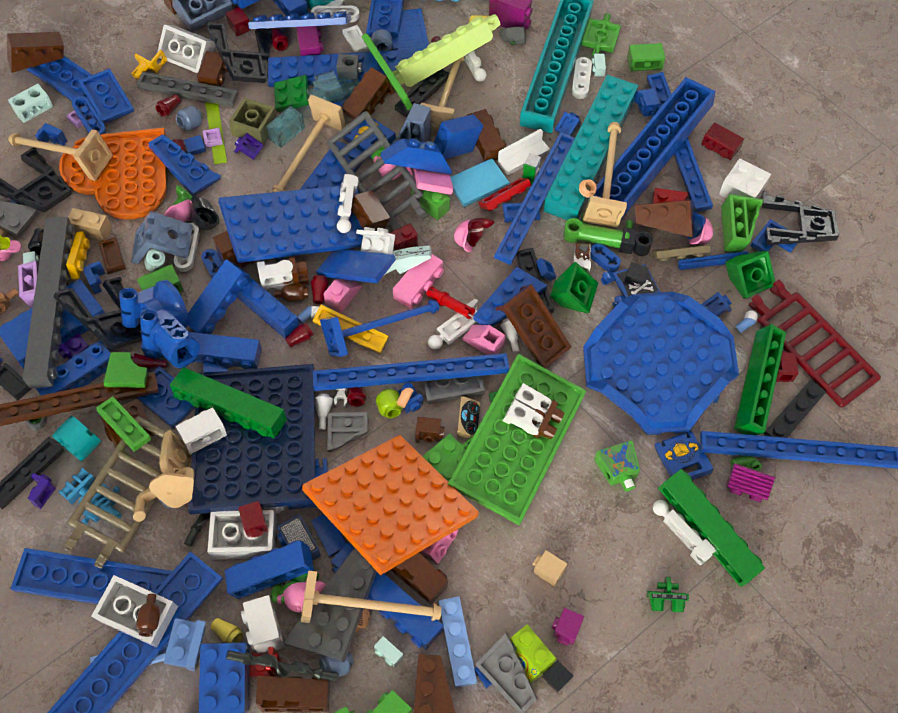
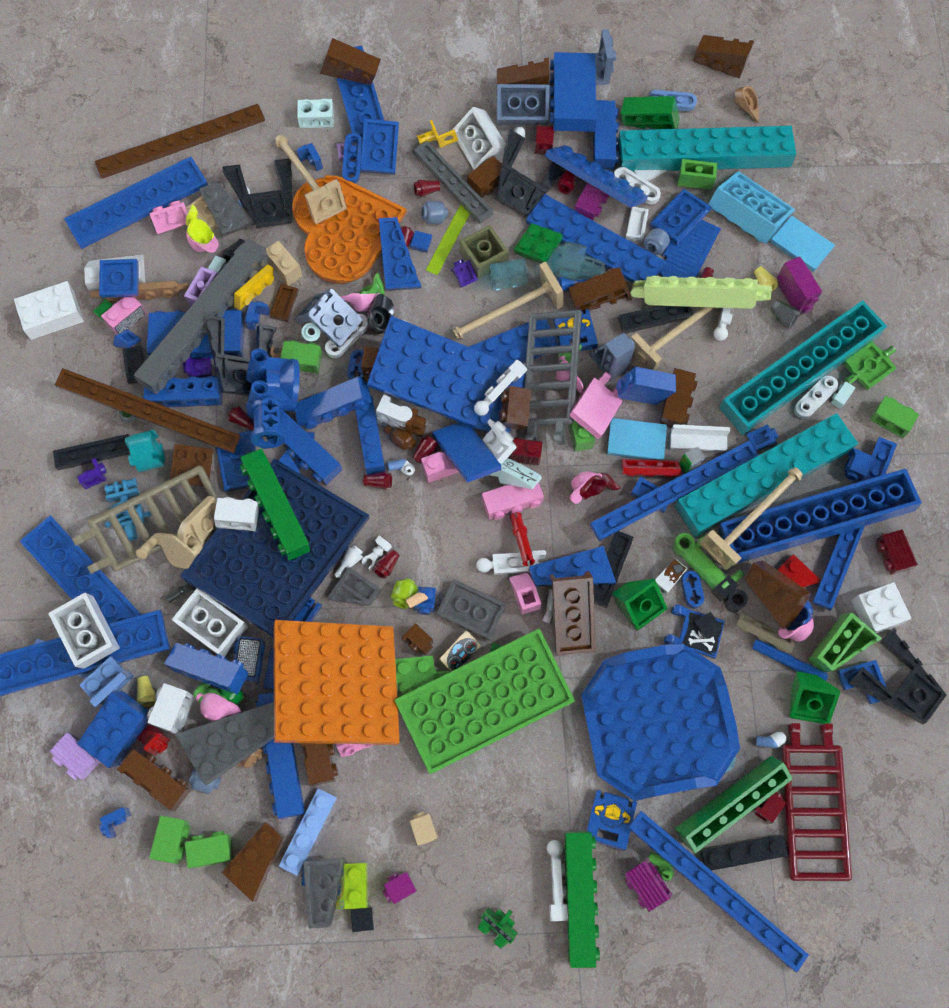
camera: 35 degrees right, 10 degrees up
(123, 372) = (215, 420): bright green tile -> none
(123, 424) = (182, 466): bright green plate -> none
(148, 617) = (85, 645): reddish brown plant -> none
(212, 137) = (441, 243): lavender tile -> none
(253, 519) = (220, 620): dark red brick -> none
(281, 668) = (154, 756): pearl dark grey piece -> none
(313, 597) = (214, 719): tan tile -> none
(335, 336) = (401, 505): blue tile -> none
(348, 66) = (607, 245): dark grey brick -> none
(370, 339) = (422, 505): yellow plate -> none
(387, 71) = (633, 278): bright green tile -> none
(388, 652) = (250, 800): light aqua piece -> none
(410, 372) = (440, 580): blue plate -> none
(416, 155) = (591, 383): blue wedge -> none
(533, 412) = (511, 697): white hips -> none
(546, 269) = (629, 565): blue tile -> none
(590, 185) = (727, 517): light nougat plate -> none
(619, 464) = (550, 786): bright green torso -> none
(717, 304) = (755, 706): blue bracket -> none

